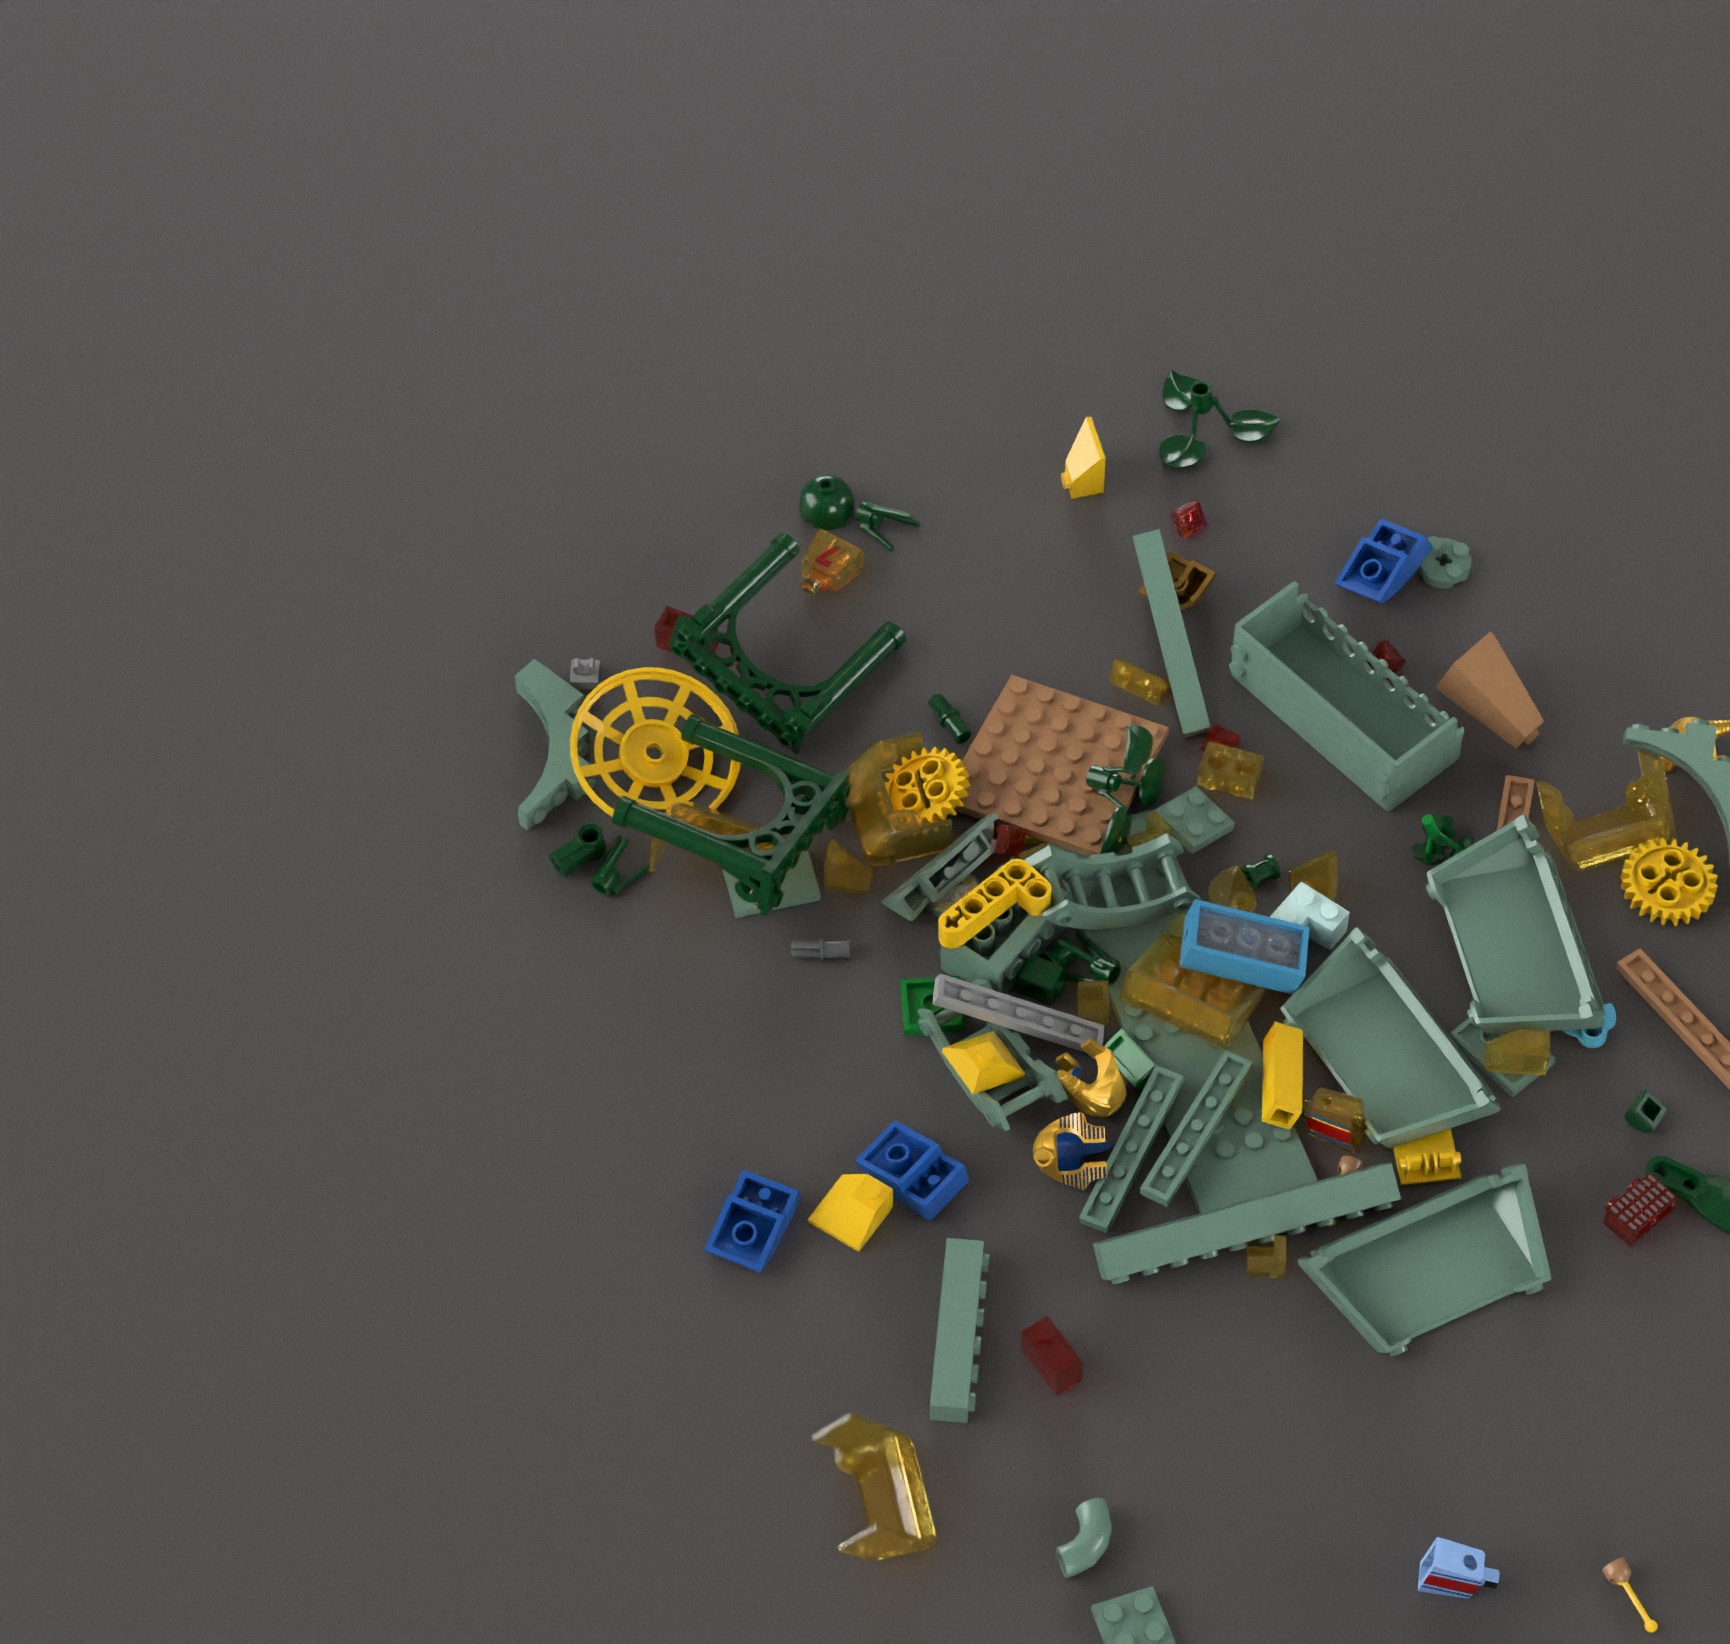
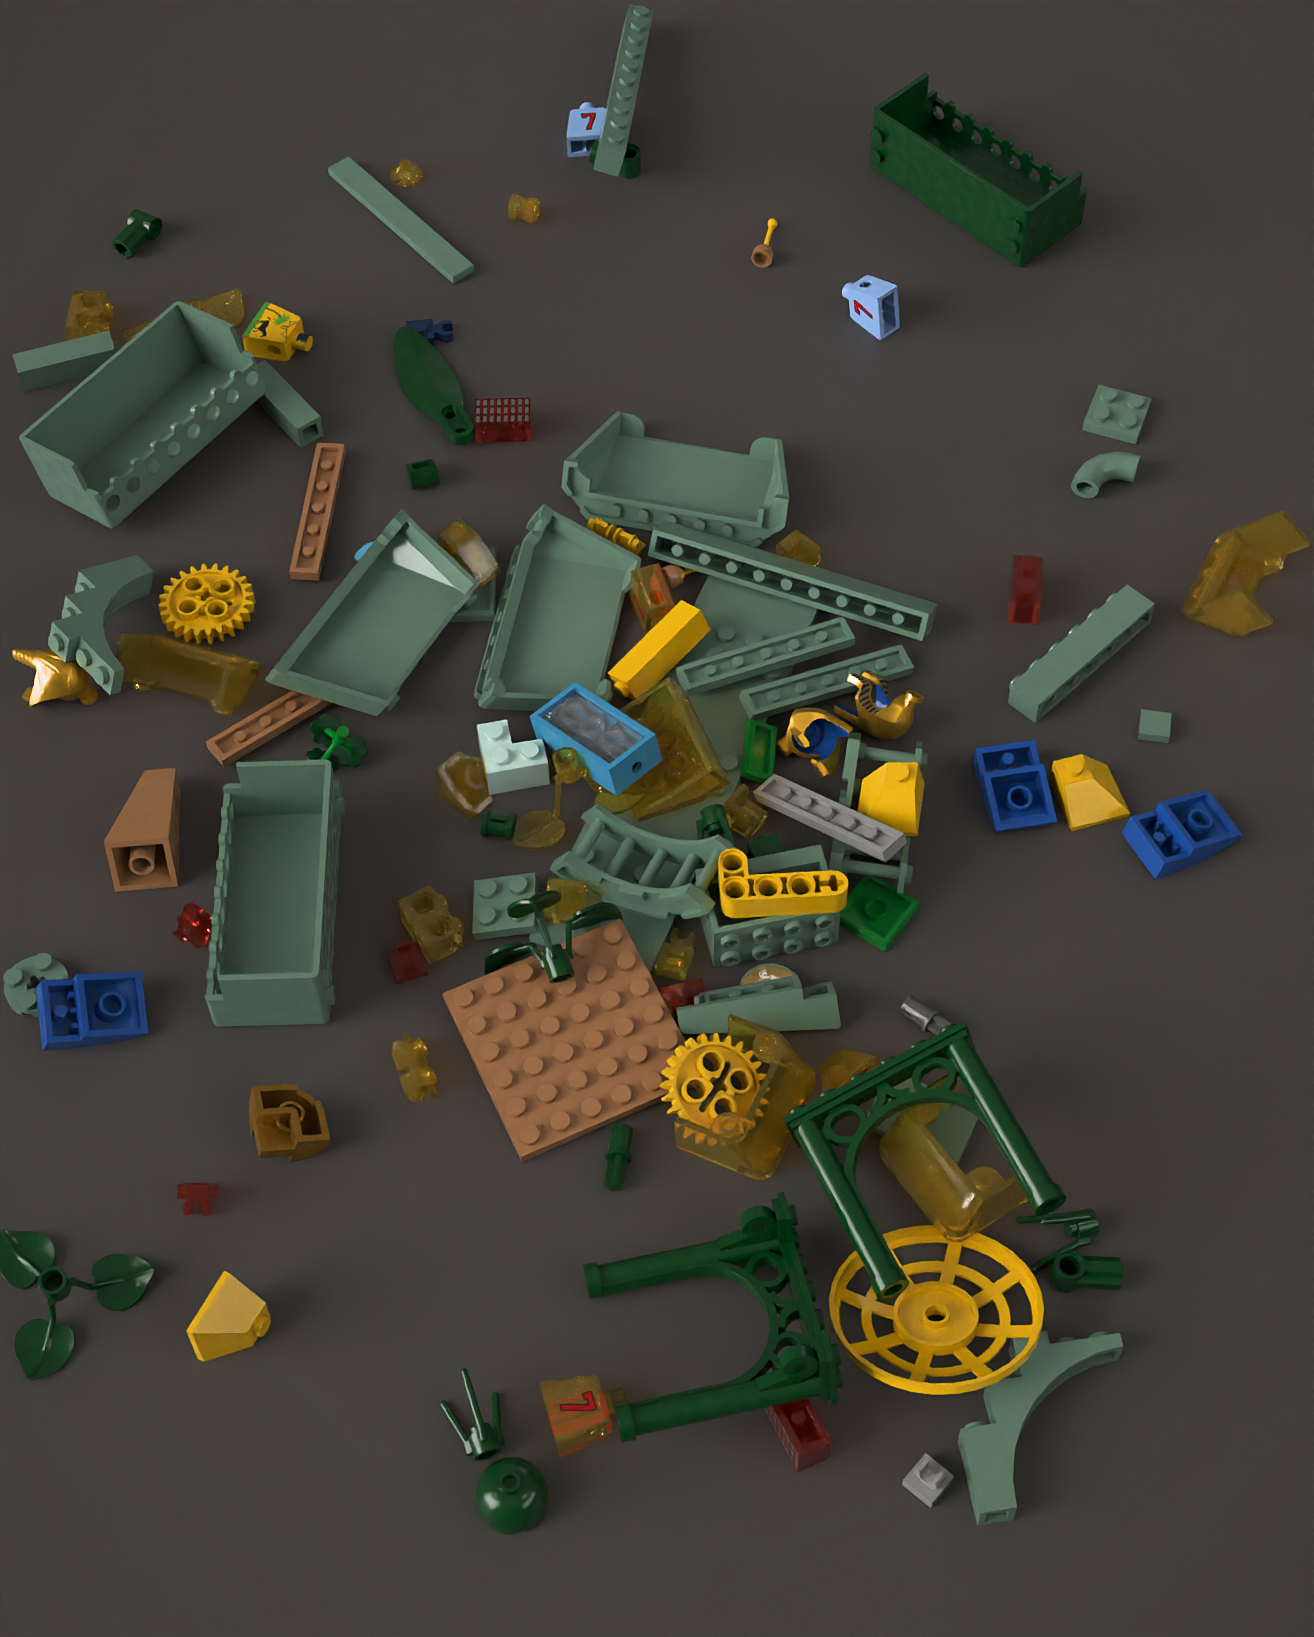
camera: 140 degrees left, 0 degrees up
(847, 1311) = (1154, 726): none -> sand green tile
(1171, 633) = (344, 1076): sand green tile -> none

